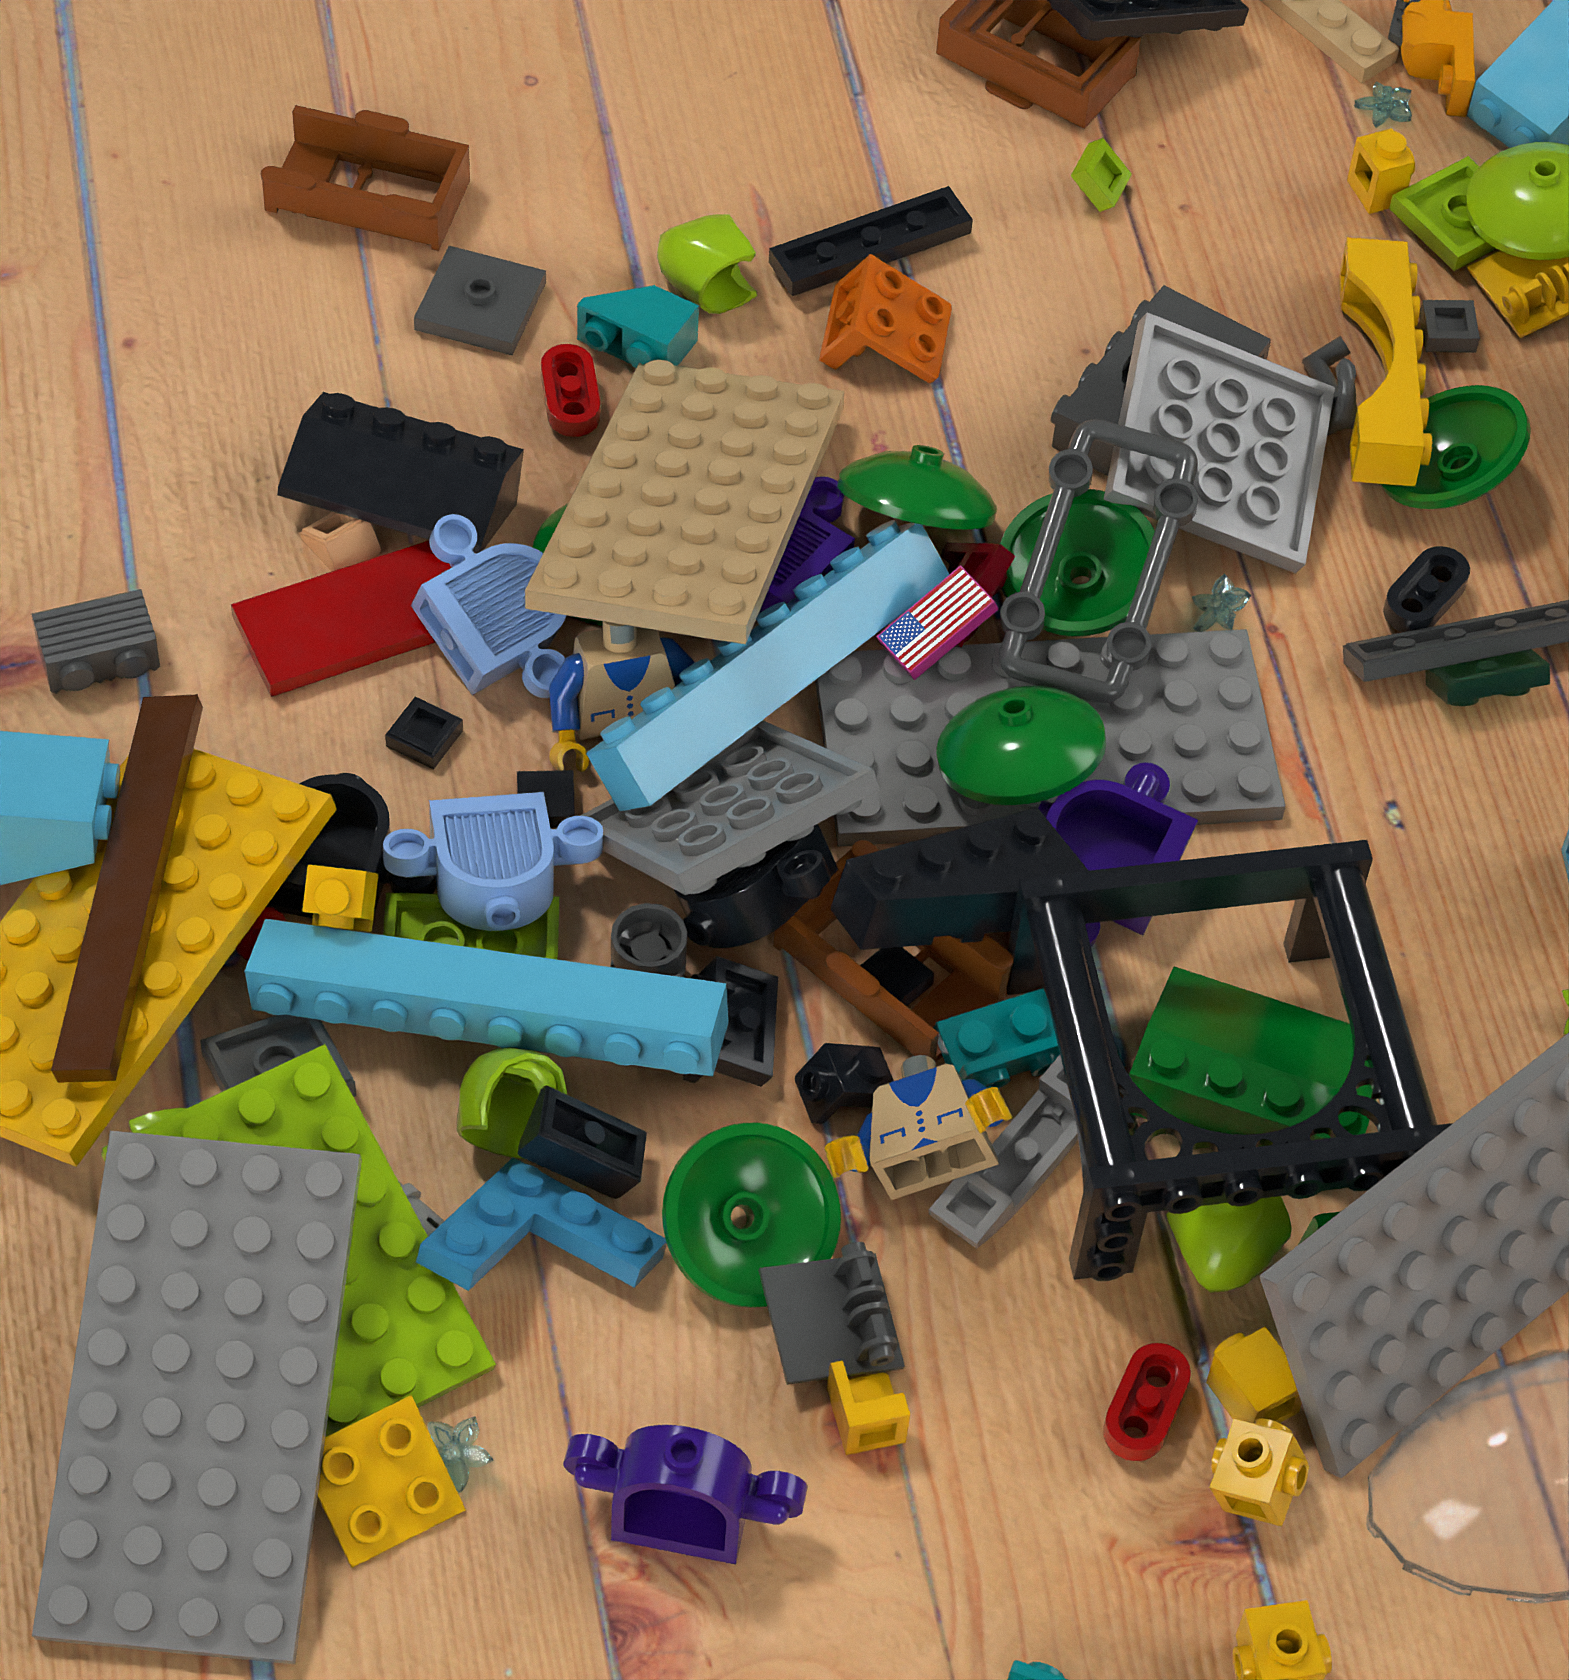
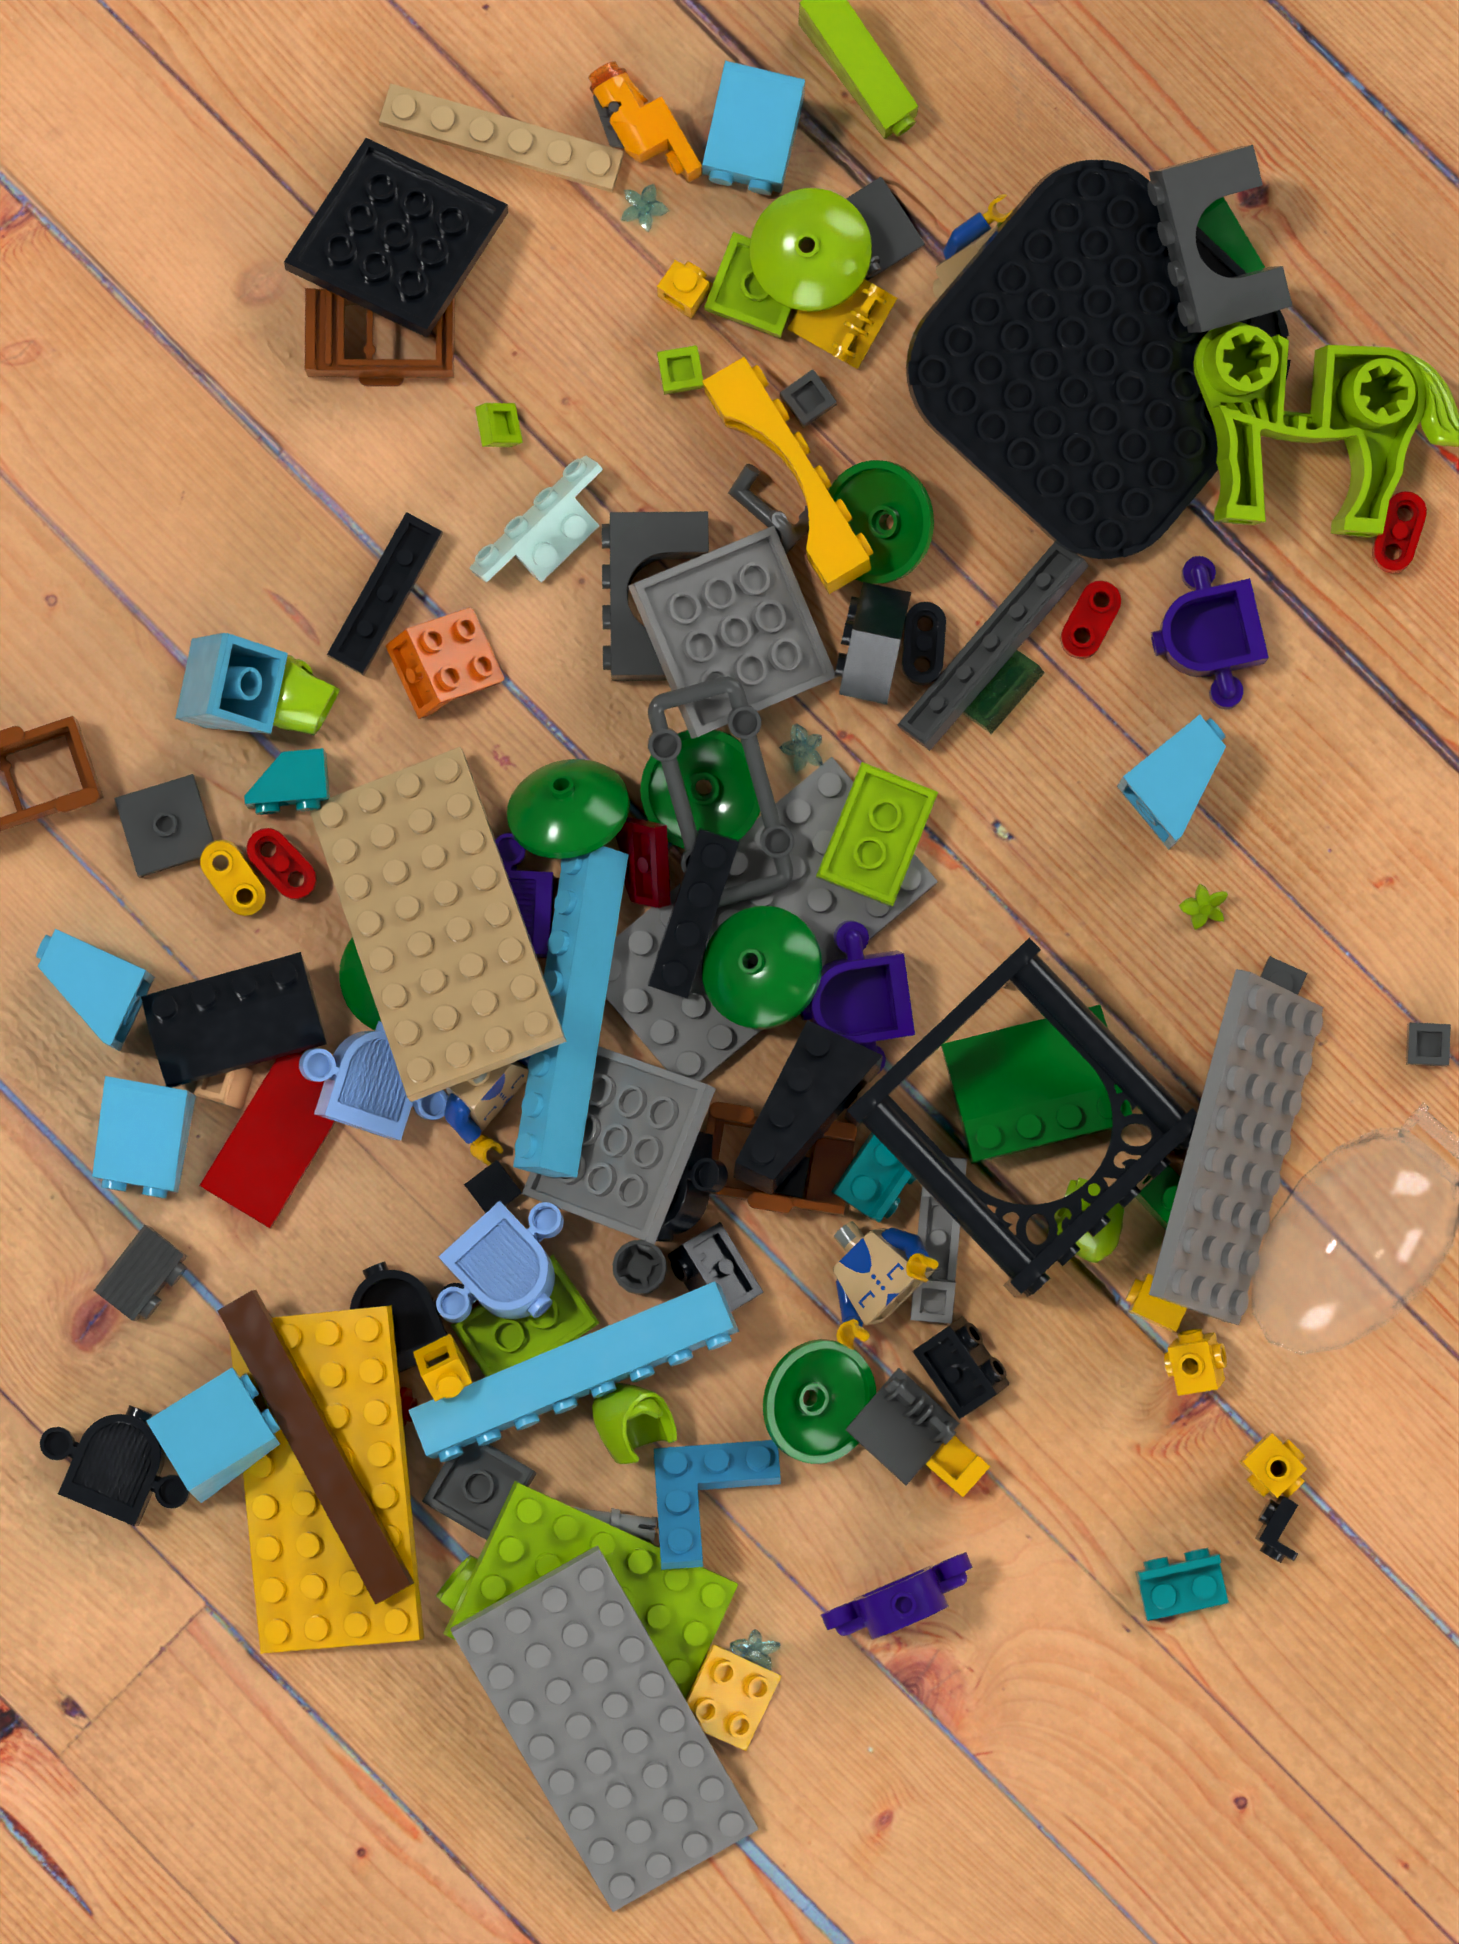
camera: 30 degrees left, 30 degrees up
(216, 512) = (142, 1136): none -> medium azure slope
(289, 356) = (95, 984): none -> medium azure slope
(424, 732) = (384, 1191): black tile -> none
(510, 367) = (233, 878): none -> yellow plate
(583, 1144) = (693, 1419): black slope -> none
(649, 187) = (231, 684): none -> medium azure slope
(841, 1077) = (806, 1264): black bracket -> none
(937, 622) = (650, 907): tile -> none
(954, 1300) = (962, 1367): none -> black bracket
(981, 653) = (693, 913): none -> black plate
(1082, 284) = (547, 530): none -> light aqua bracket
(1146, 1406) = (1107, 1355): red plate -> none
(1247, 714) = (877, 834): none -> lime tile
(1326, 233) = (680, 369): none -> lime plate
(1366, 545) = (873, 638): none -> black brick

